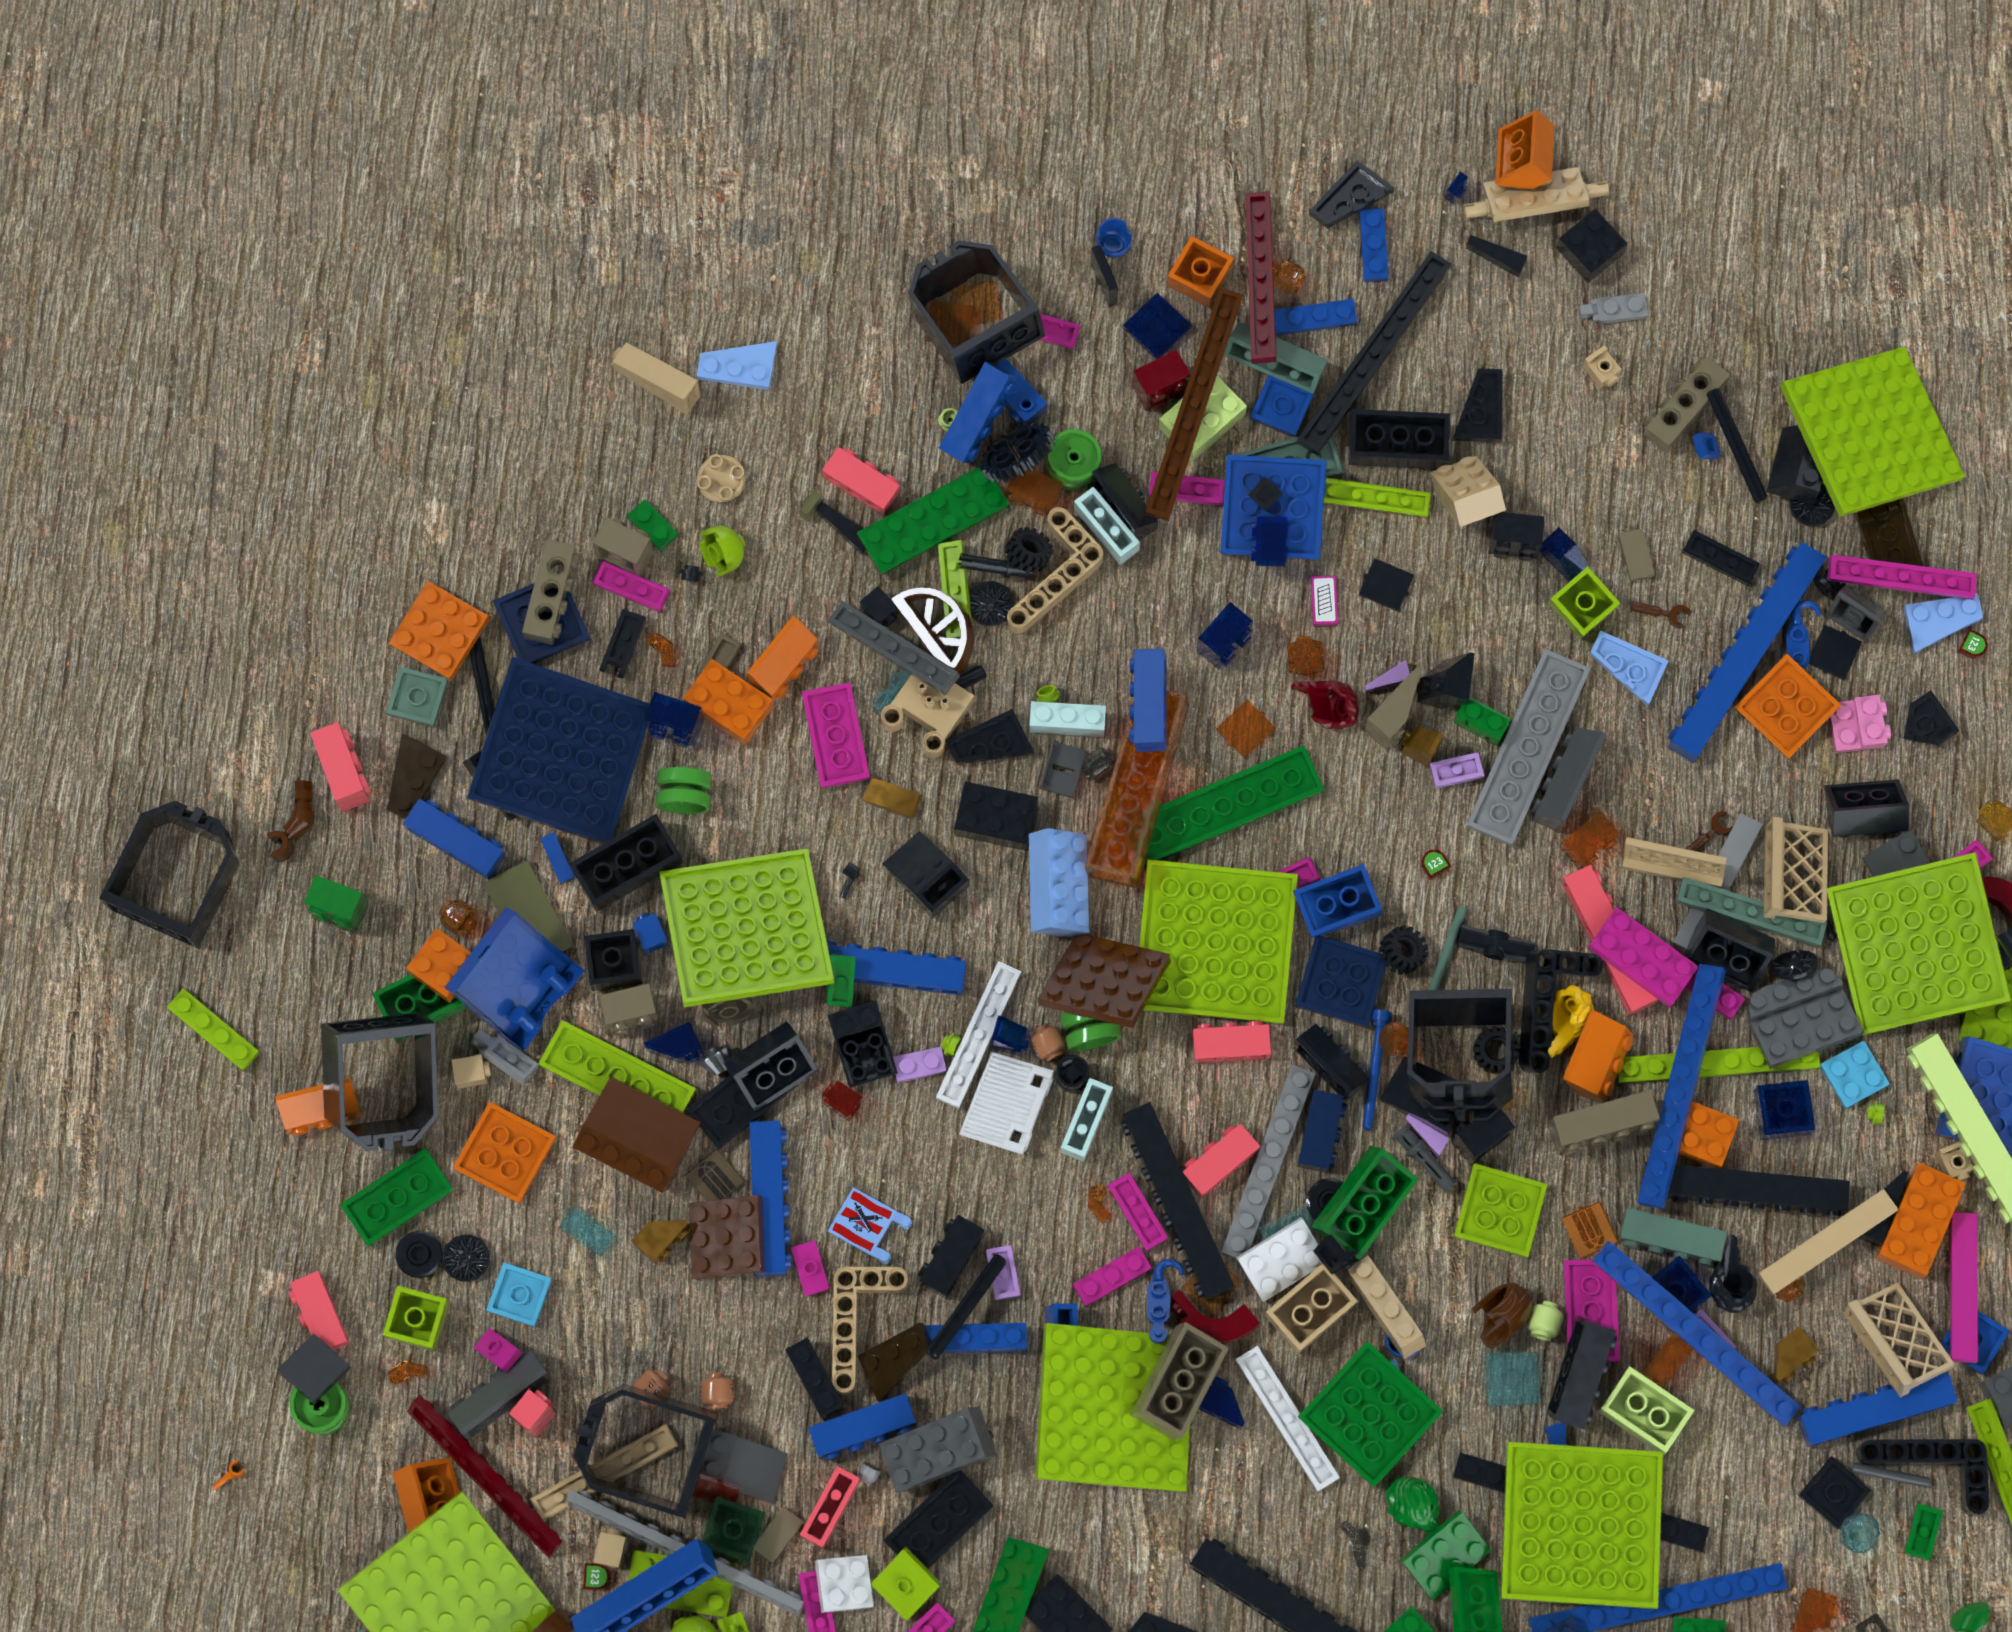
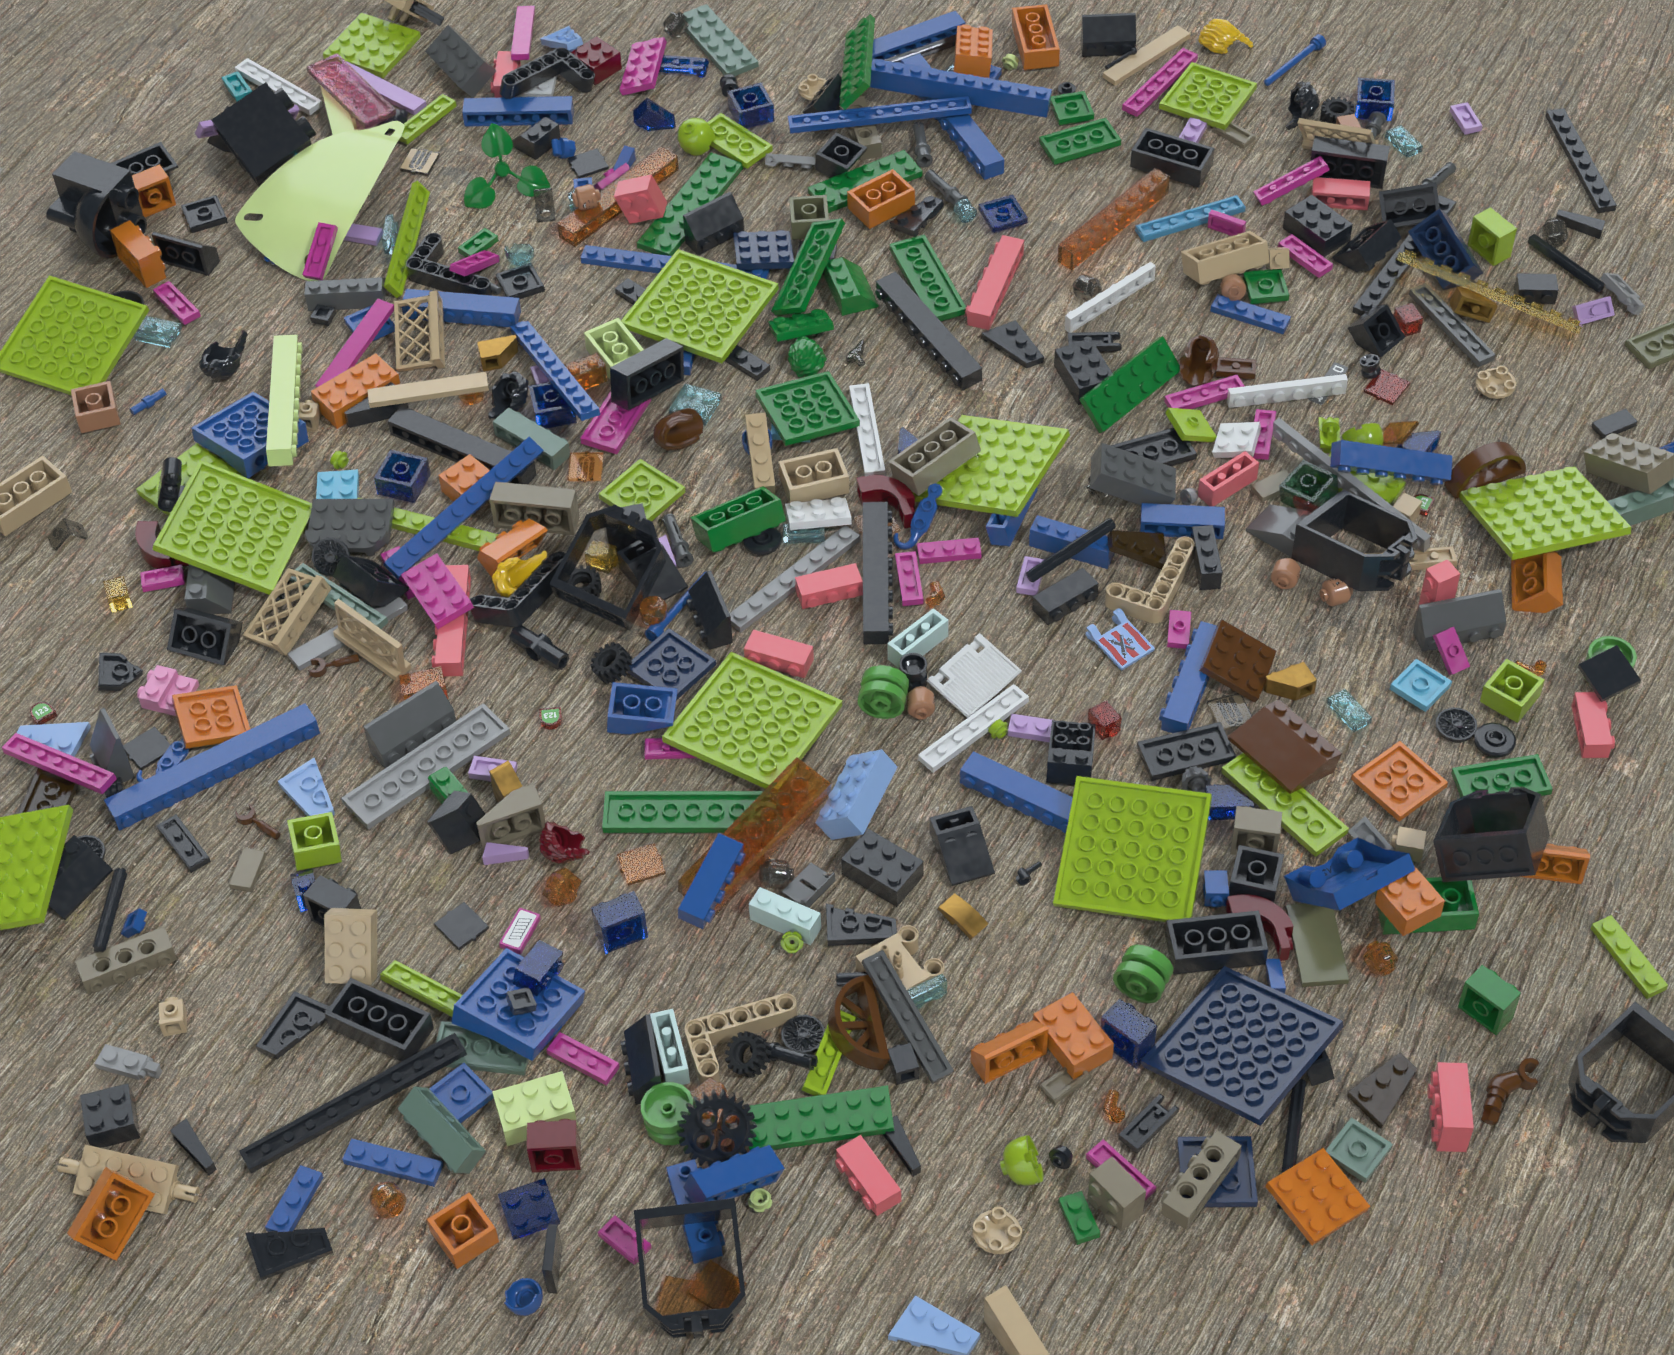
camera: 155 degrees left, 25 degrees down
(454, 838) = (1363, 1020): blue brick -> none
(484, 1476) = (1483, 577): dark red plate -> none
(589, 922) = (1273, 918): none -> arch
(770, 1066) = (1155, 754): black slope -> none
(811, 505) = (924, 1171): olive tile -> none
(835, 735) = (989, 980): dark pink plate -> none
(842, 990) = (1064, 788): green plate -> none
(1010, 1037) = (951, 711): clear blue slope -> none
(1104, 980) = (856, 705): reddish brown plate -> none
(1194, 404) = (535, 1101): reddish brown plate -> none
(1260, 277) = (412, 1197): dark red plate -> none
(1321, 1131) = (745, 577): dark blue brick -> none
(1334, 1256) = (779, 486): black bracket -> none
(1448, 948) = (579, 658): sand green bar -> none
(1457, 188) = (189, 1216): clear blue plate -> none
(1545, 1321) = (649, 418): yellowish green head -> none
(1902, 1486) = (474, 263): none -> dark pink tile

